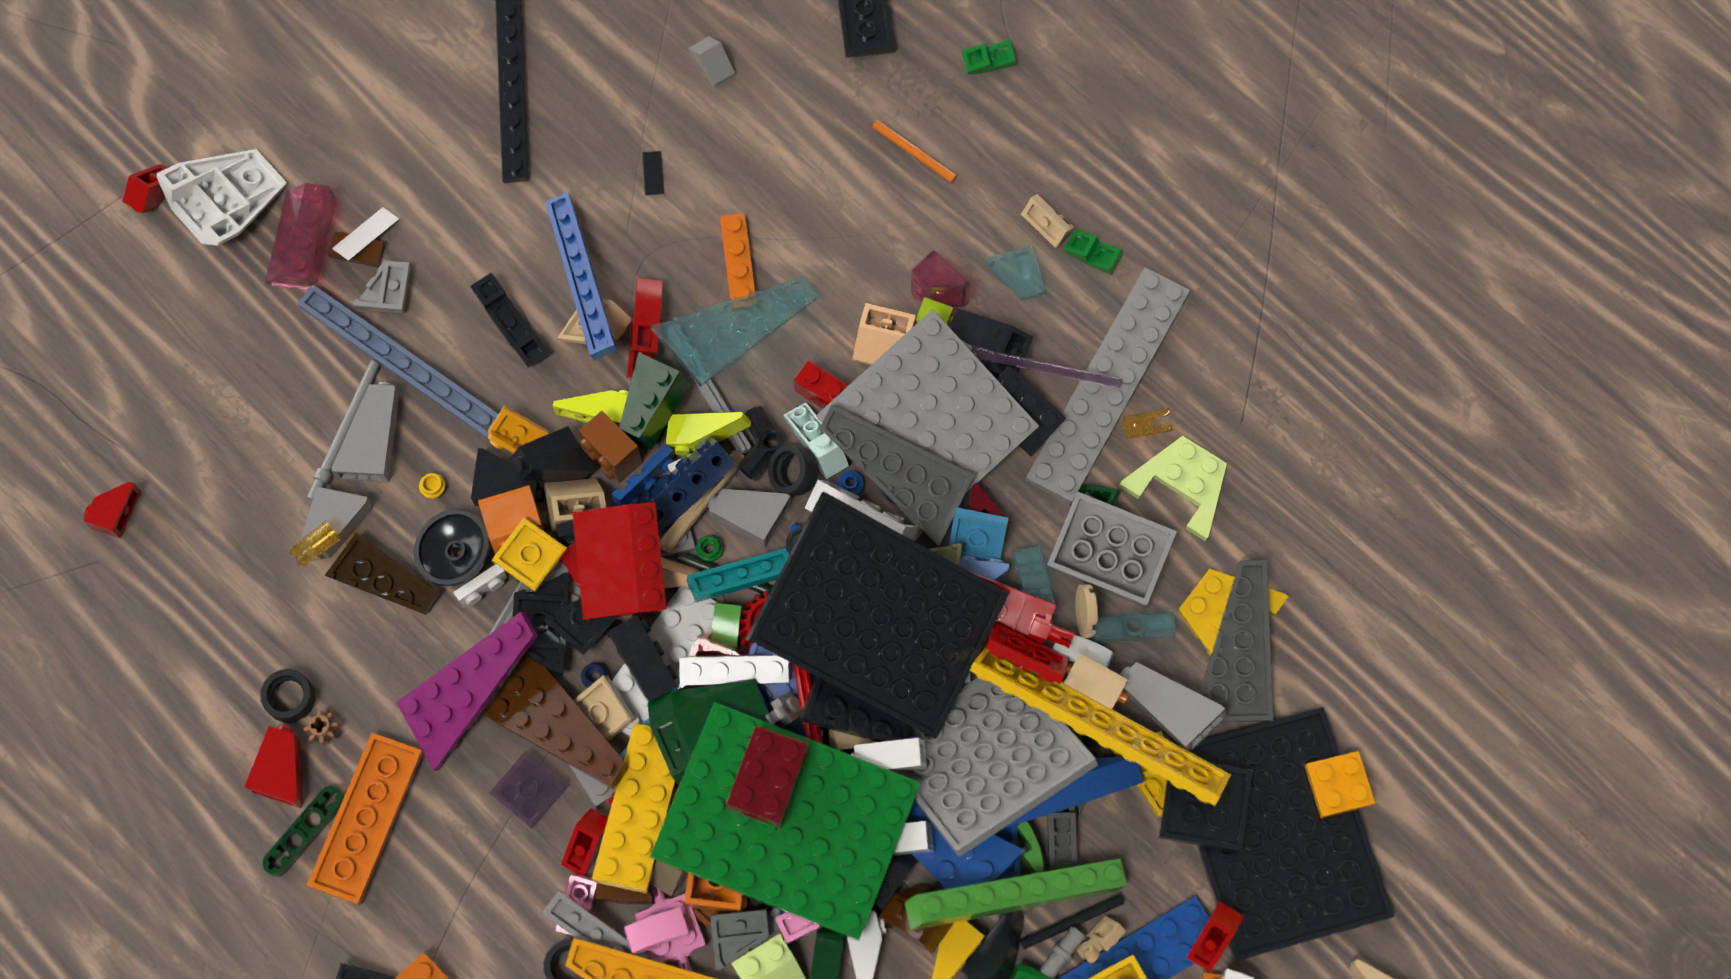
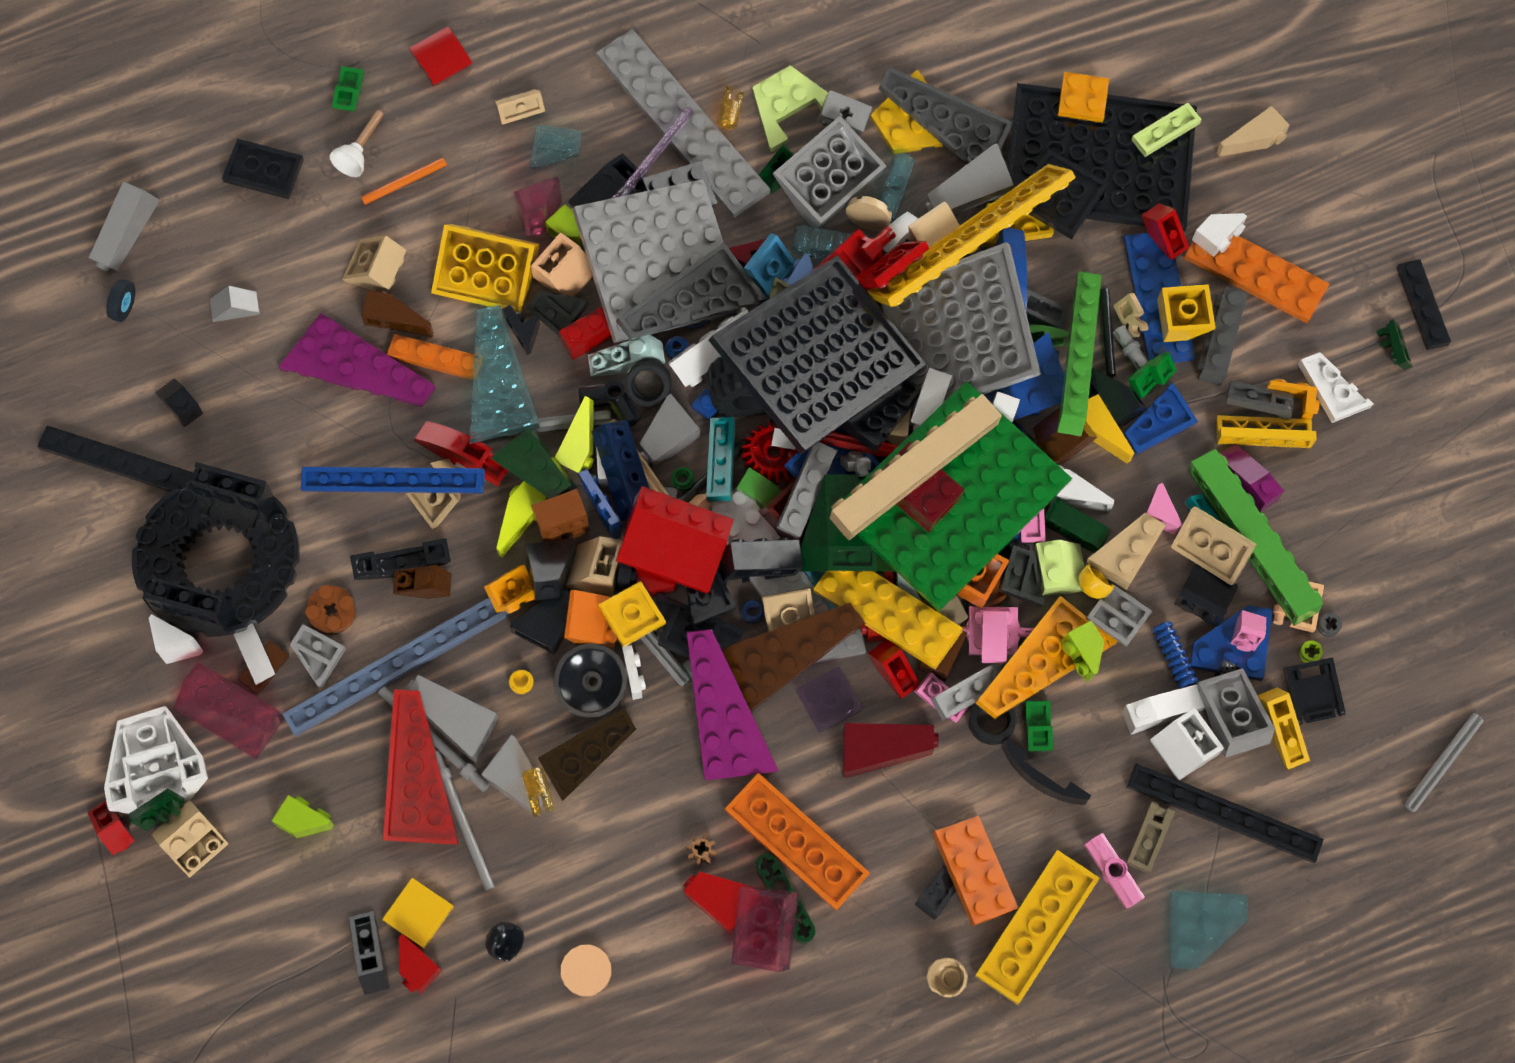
camera: 70 degrees left, 0 degrees up
(108, 463) = (368, 953): none -> black slope
(162, 580) = (504, 941): none -> black hair
(163, 258) = (189, 839): none -> tan slope
(163, 669) = (586, 970): none -> light nougat tile
(166, 491) = (418, 913): none -> yellow tile
(176, 218) = (157, 810): none -> dark green plate
(218, 344) = (299, 819): none -> lime slope
(257, 821) = (765, 928): none -> clear pink slope
(270, 685) = (659, 889): black tyre -> none
(280, 435) = (415, 789): none -> red wing
(309, 456) = (464, 825): none -> light grey bar
(343, 154) = (171, 642): none -> white slope
(416, 111) = (209, 501): none -> black piece
(445, 293) = (329, 596): none -> dark orange plate
(494, 351) = (422, 582): none -> reddish brown slope
(498, 862) = (883, 745): none -> dark red slope
(588, 57) = (179, 402): none -> black slope
(653, 173) = (315, 394): black sticker -> none
(699, 182) = (346, 360): none -> magenta wing
(764, 197) = (388, 312): none -> reddish brown slope
(775, 758) = (915, 466): none -> tan brick
(798, 331) = (523, 330): none -> black slope
(809, 164) = (375, 263): none -> tan slope
(836, 350) = (557, 309): none -> pearl dark grey wing
(853, 263) = (484, 267): none -> yellow slope
(913, 90) = (349, 158): none -> white piece
(1067, 124) = (440, 56): none -> red slope
(1090, 251) = (565, 84): green slope -> none
(1197, 525) = (856, 112): none -> light grey brick
(1343, 891) = (1166, 129): none -> yellowish green plate

